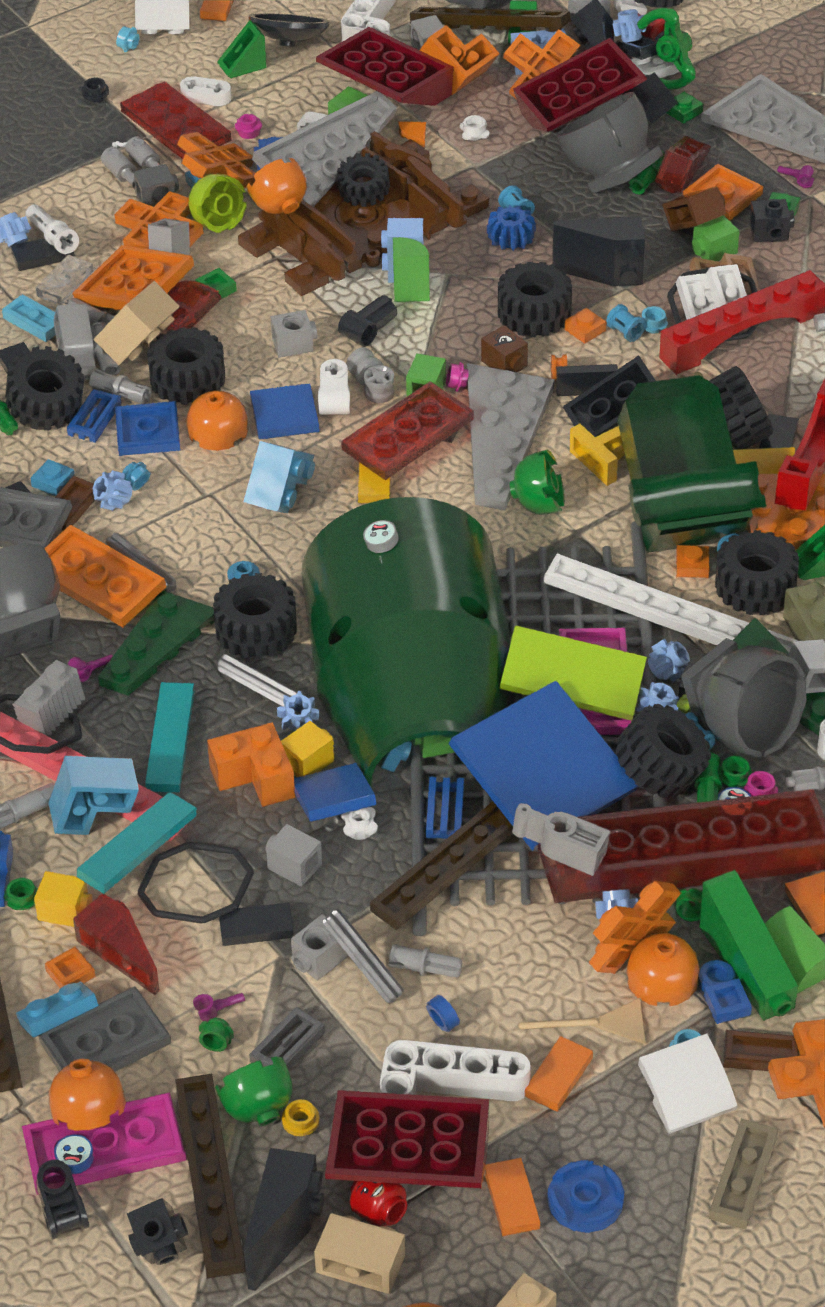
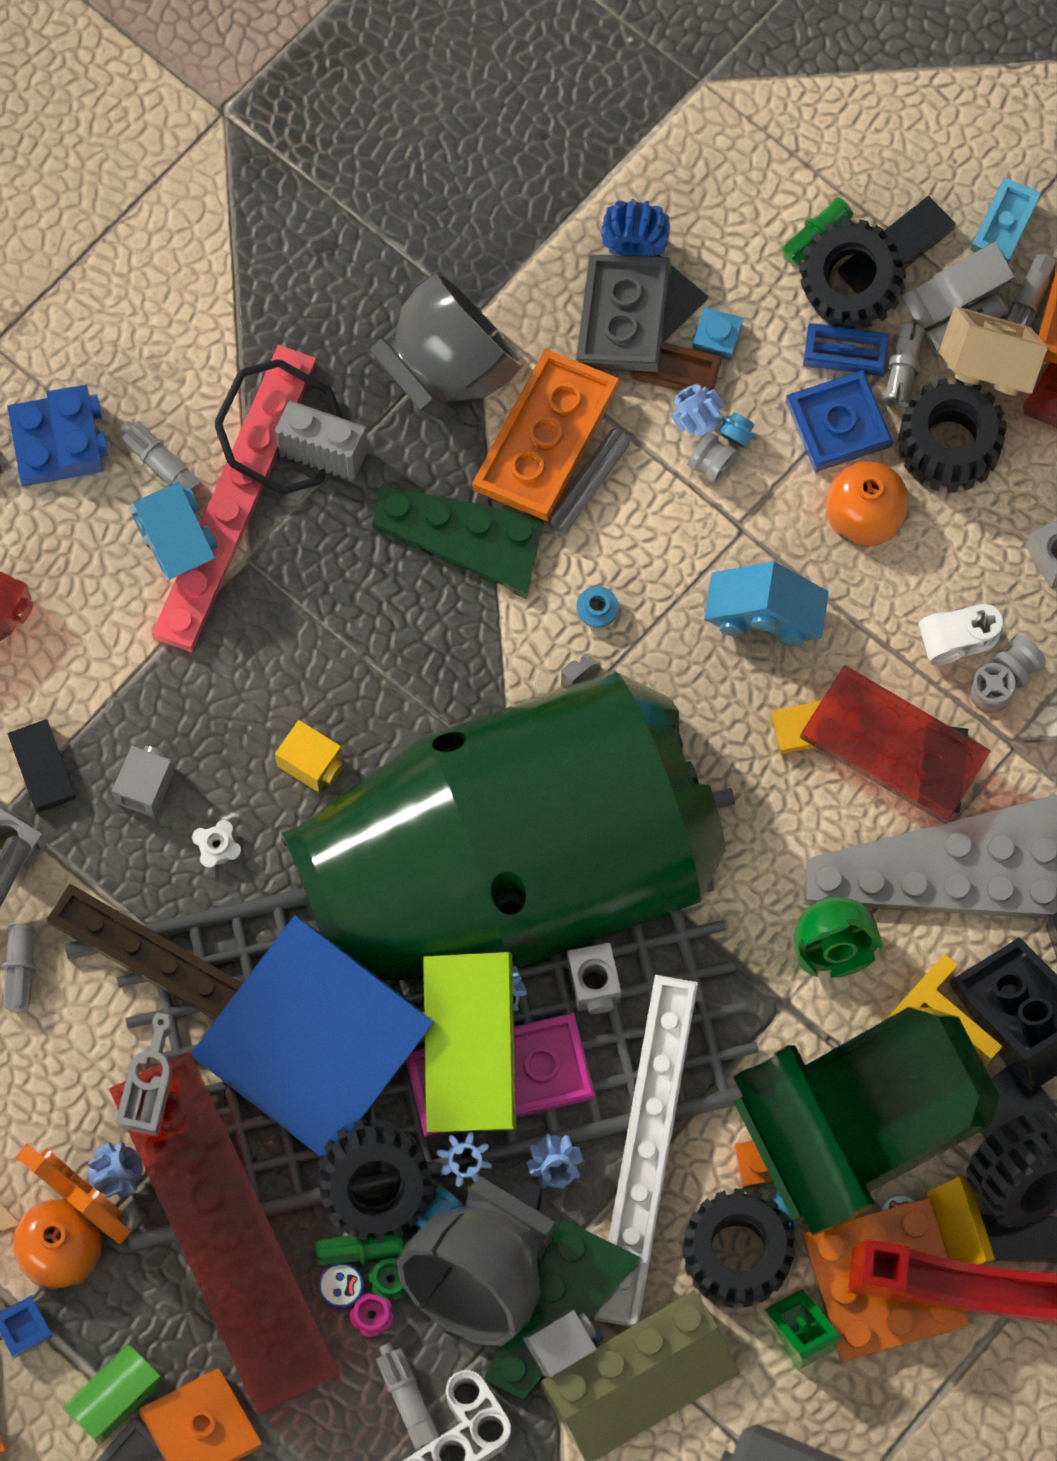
camera: 75 degrees right, 25 degrees up
(20, 894) = (28, 489): green plate -> none
(61, 898) = (26, 544): yellow brick -> none
(85, 669) = (393, 464): magenta hand -> none
(136, 842) = (107, 600): teal tile -> none
(152, 491) = (712, 458): none -> light grey wheel
(170, 737) = (309, 594): teal tile -> none
(192, 918) = (82, 737): black piece -> none
(253, 758) = (279, 703): orange brick -> none
(254, 679) = (418, 673): axle -> none
(255, 616) = (519, 607): black tyre -> none
(284, 411) = (914, 580): blue tile -> none
(294, 704) = (374, 737): light blue gear -> none
(298, 590) = (578, 672): none -> light grey tile
(334, 792) = (249, 802): blue tile -> none
(380, 536) = (577, 749): tile -> none
(425, 369) = (1017, 746): bright green brick -> none
(444, 787) = (241, 922): blue tile -> none
(456, 376) = (1035, 785): dark pink plate -> none
(538, 608) = (594, 960): none -> light grey brick
(686, 909) = (164, 1259): green plate -> none
(714, 973) = (63, 1309): blue tile -> none
(745, 943) = (90, 1337): green slope -> none

